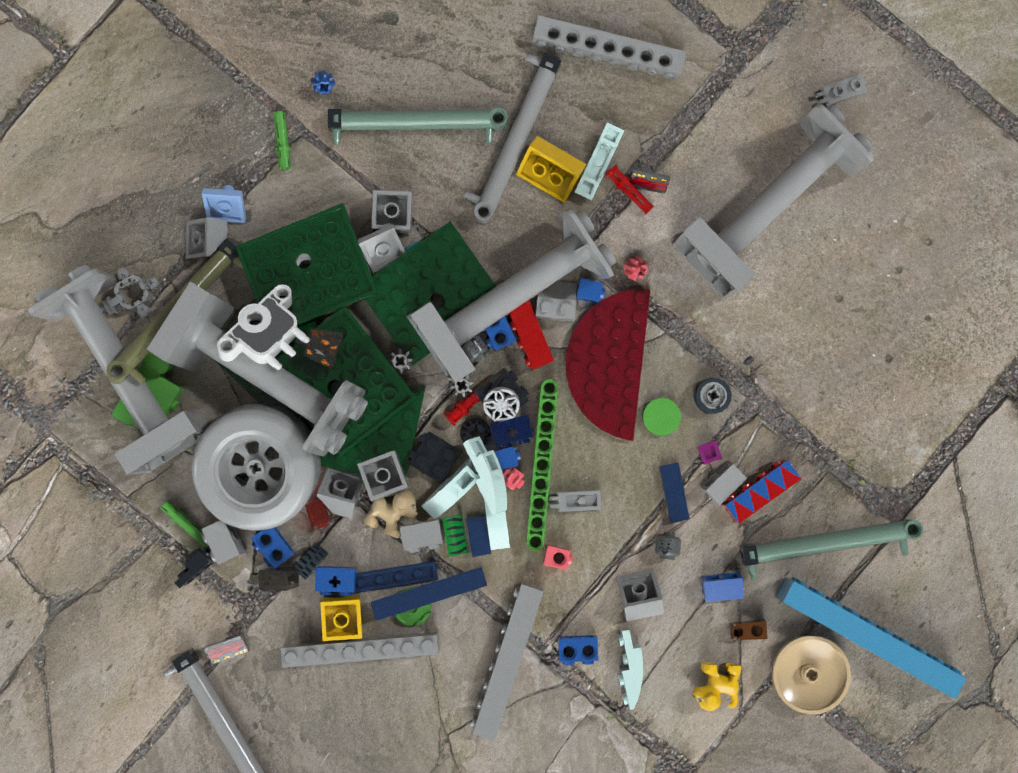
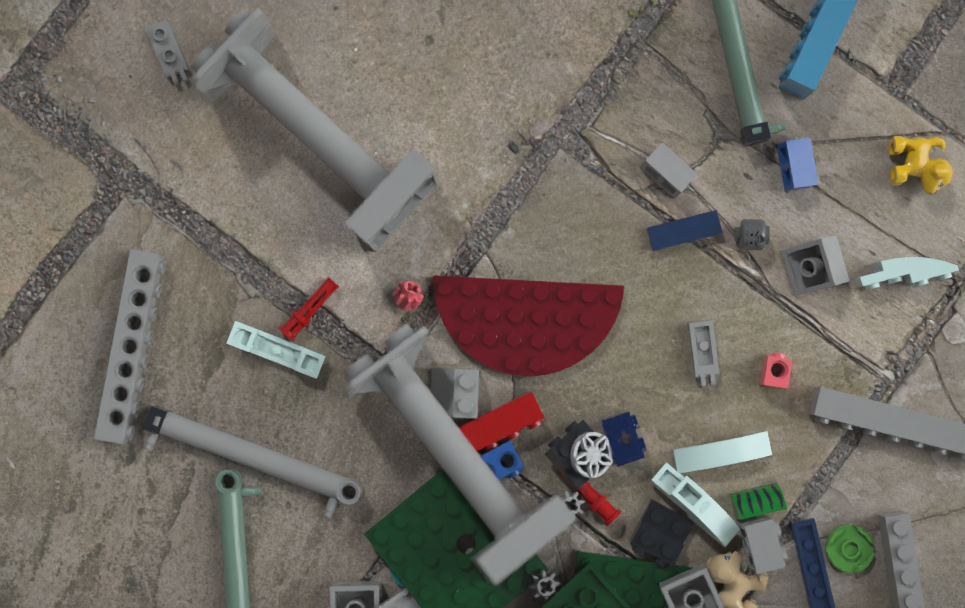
camera: 75 degrees left, 0 degrees up
(428, 593) = (833, 530): dark blue tile -> none
(475, 349) = (524, 492): dark grey head -> none
(478, 536) = (756, 471): dark blue tile -> none
(482, 427) = (636, 475): black gear -> none
(491, 478) = (678, 463): light aqua slope -> none
(508, 457) = (657, 443): blue brick -> none
(513, 478) = (682, 433): coral gear -> none
(544, 474) = (674, 393): bright green beam -> none
(550, 169) = (288, 410): yellow slope -> none
(578, 642) = (880, 339): blue brick -> none
(590, 291) = (440, 350): blue brick -> none
(650, 181) = (296, 284): slope -> none
(661, 416) = (591, 251): bright green tile -> none
(709, 452) = (632, 190): magenta plate -> none
(722, 393) = (570, 181): wheel -> none
(749, 630) = (848, 129): reddish brown leg -> none
(761, 491) = (675, 122): brick -> none
(811, 674) = (897, 49): tan dish -> none

